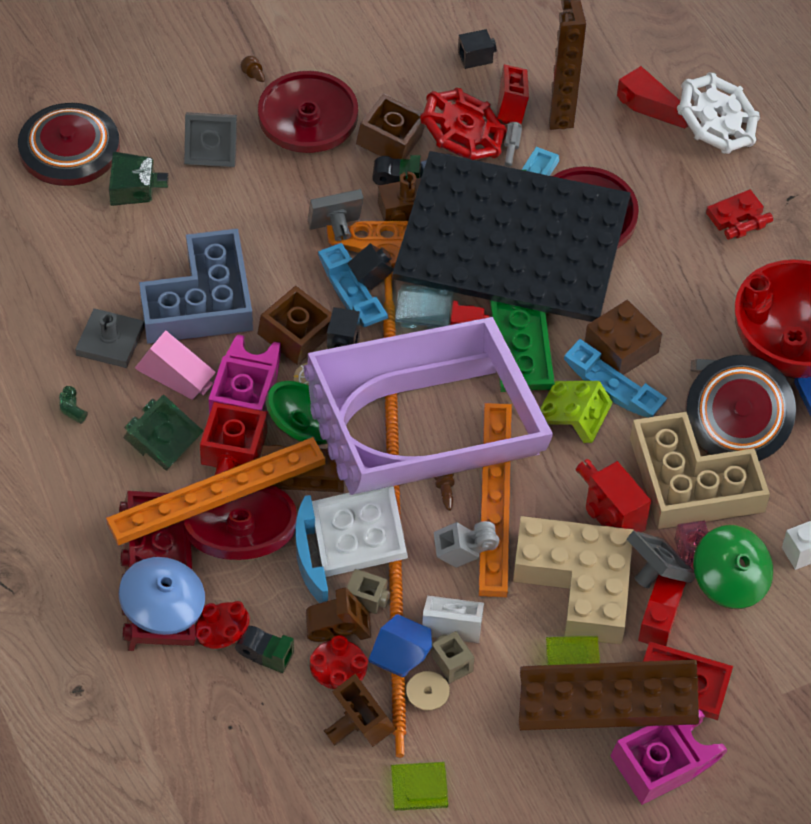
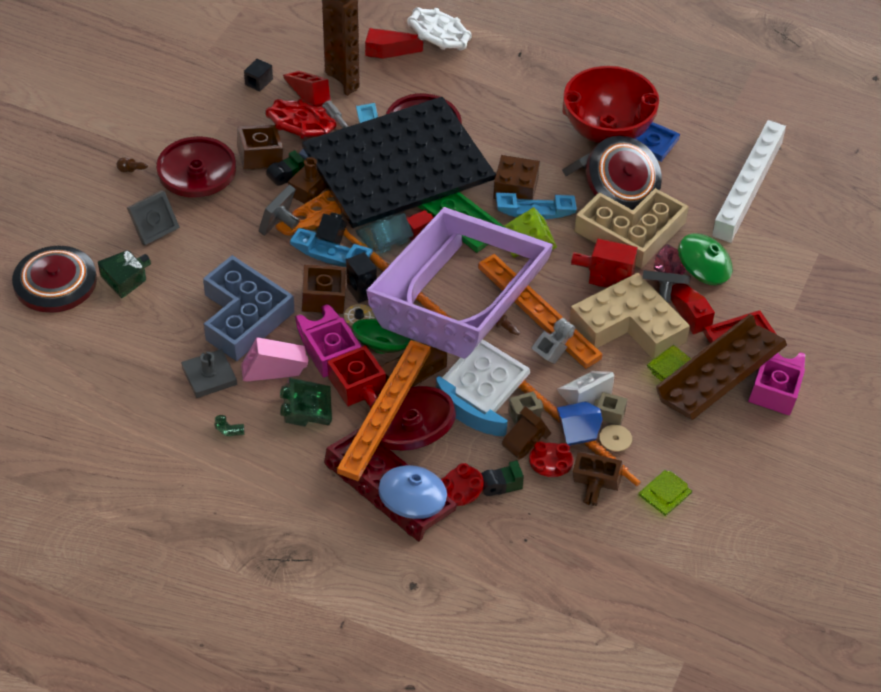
camera: 40 degrees left, 5 degrees down
(734, 210) = (499, 76): red plate -> none

